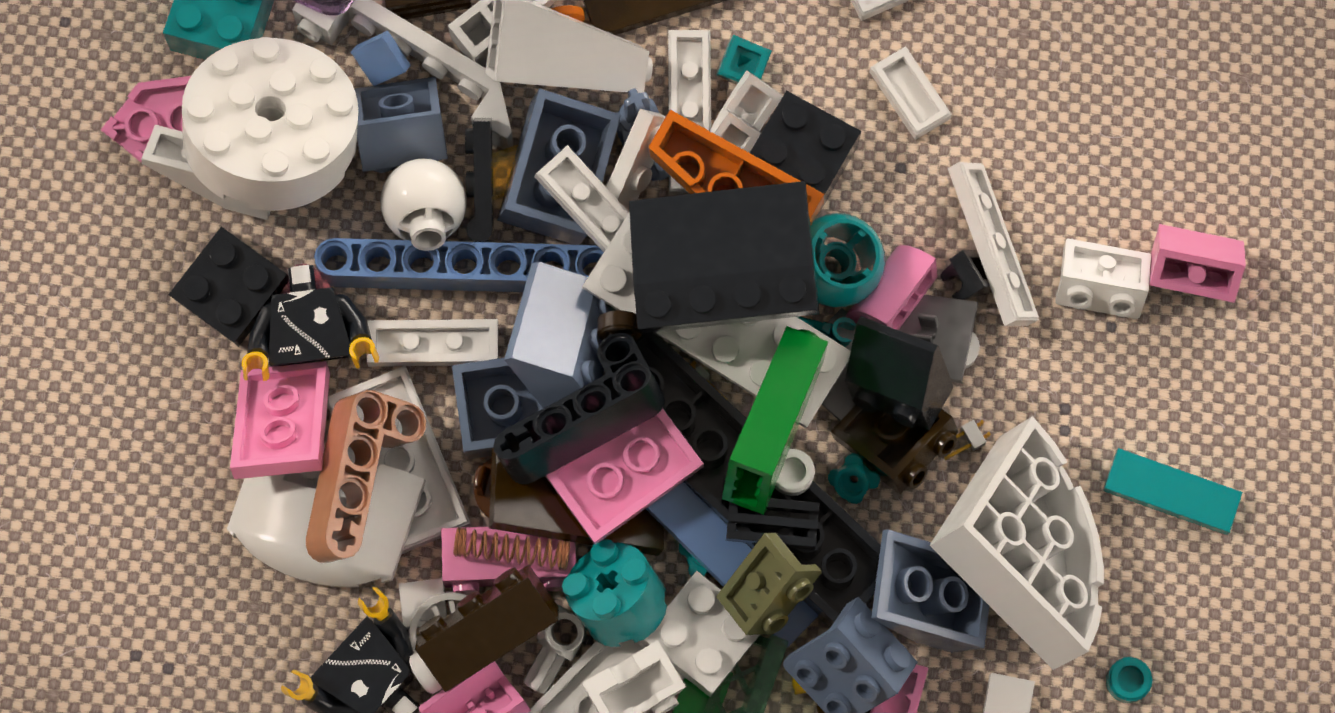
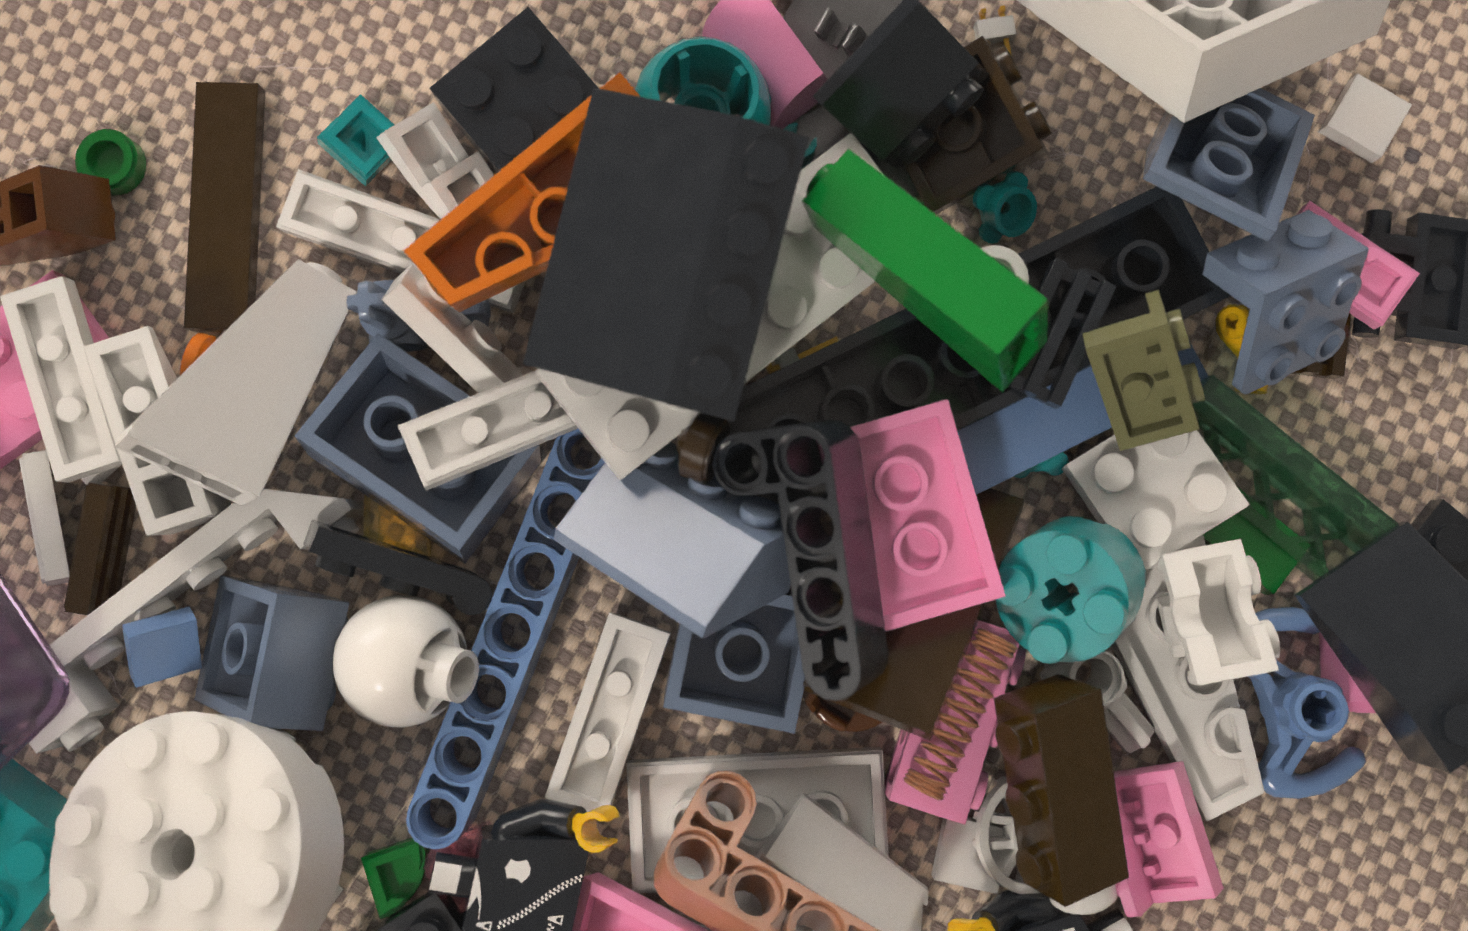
camera: 65 degrees left, 10 degrees up
(286, 249) = (395, 874): none -> green tile

